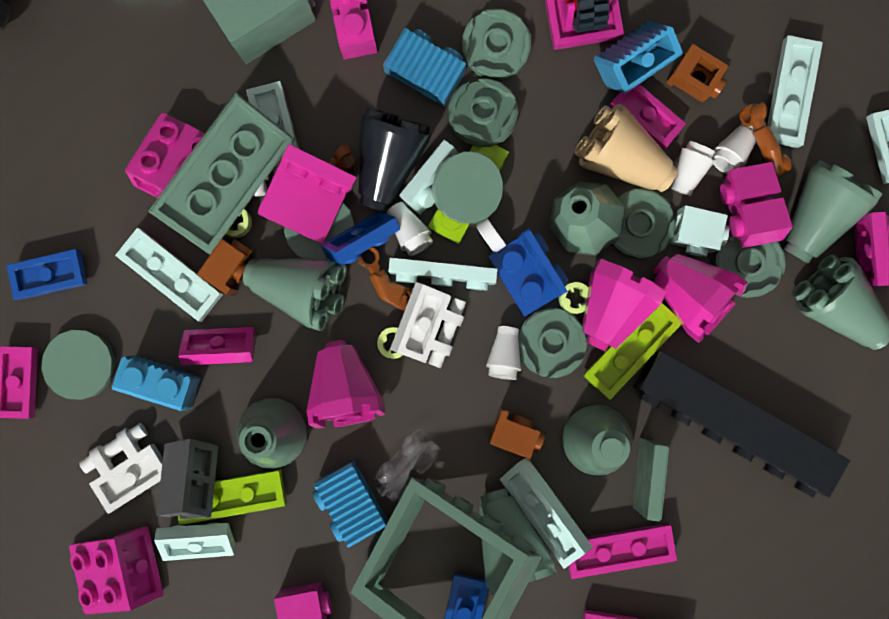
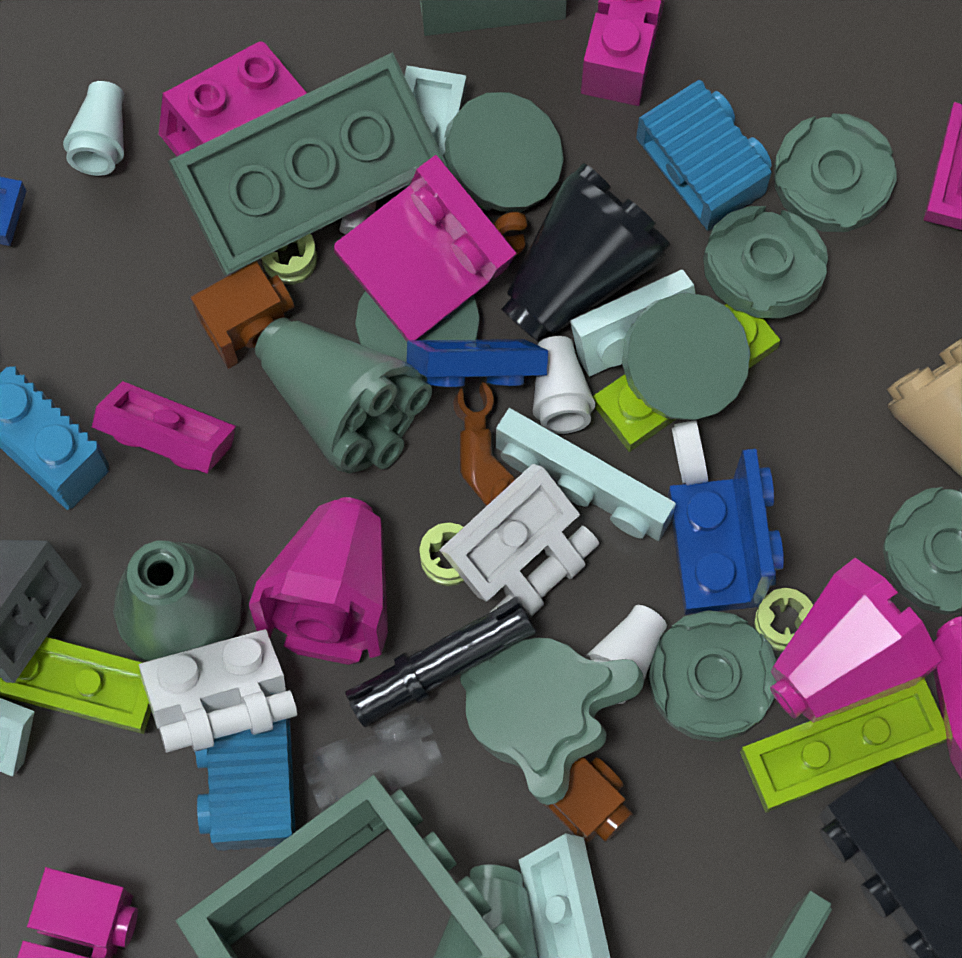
camera: 25 degrees right, 15 degrees down
(100, 202) = (96, 134): none -> light aqua cone
(169, 274) = (145, 286): light aqua plate -> none
(308, 468) = (217, 691): none -> white plate
(319, 115) = (503, 152): none -> sand green tile
(407, 414) = (418, 674): none -> black pin
(476, 405) = (540, 705): none -> sand green tile
(596, 226) = (862, 493): sand green cone -> none
(597, 439) = (717, 874): sand green cone -> none

